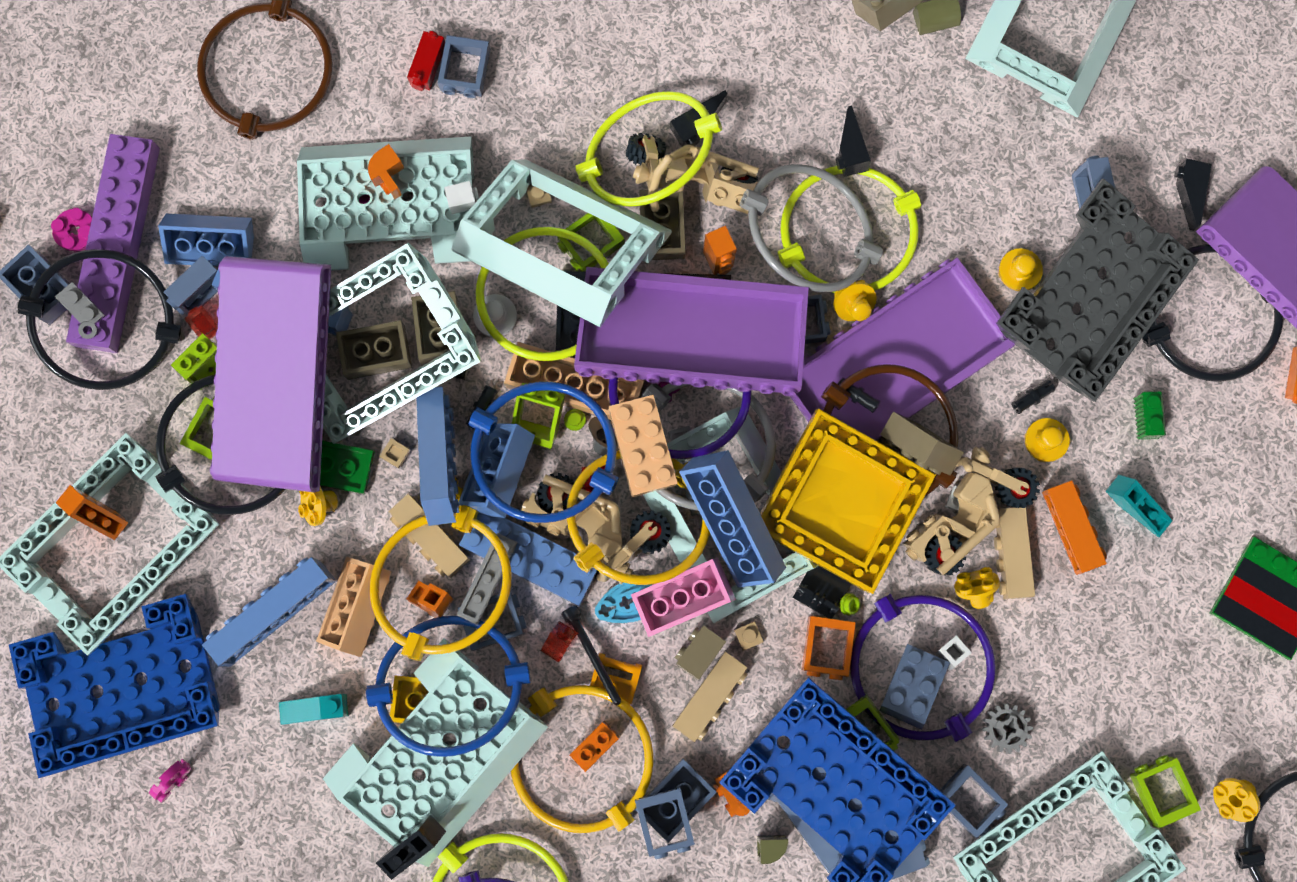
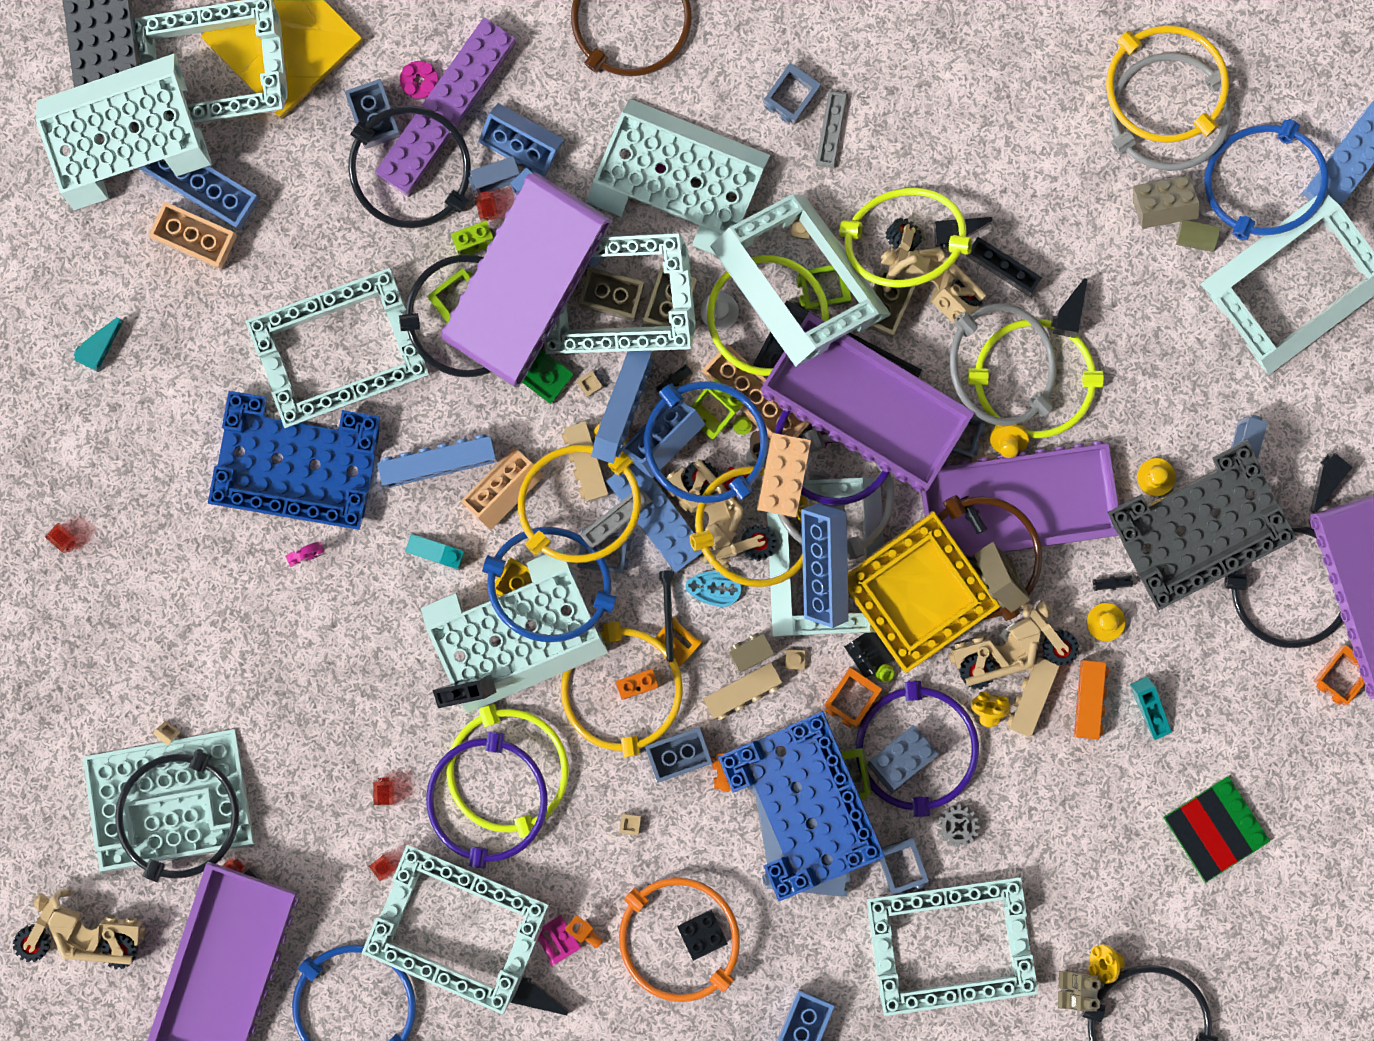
camera: 25 degrees right, 5 degrees up
(81, 308) = (400, 153): light grey hinge -> none
(91, 512) = (337, 319): orange brick -> none
(316, 504) = (508, 396): yellow plate -> none
(381, 169) = (687, 151): orange brick -> none
(426, 61) = (763, 75): red brick -> none
(430, 599) = (564, 511): orange brick -> none
(461, 197) = (738, 206): white brick -> none
(521, 83) = (831, 129): none -> light grey tile
(559, 641) = (647, 592): clear red brick -> none
(659, 798) = (664, 746): sand blue window -> none
(683, 597) = (759, 605): bright pink brick -> none
(719, 250) = (921, 348): orange brick -> none
(762, 133) = (1004, 266): none -> black brick
(771, 848) = (732, 825): olive brick -> none
(953, 652) = (946, 749): white brick -> none
(1149, 415) = (1196, 642): green brick -> none
(1175, 813) = (1051, 951): lime window -> none
(1227, 844) = (1084, 994): none -> dark tan hips

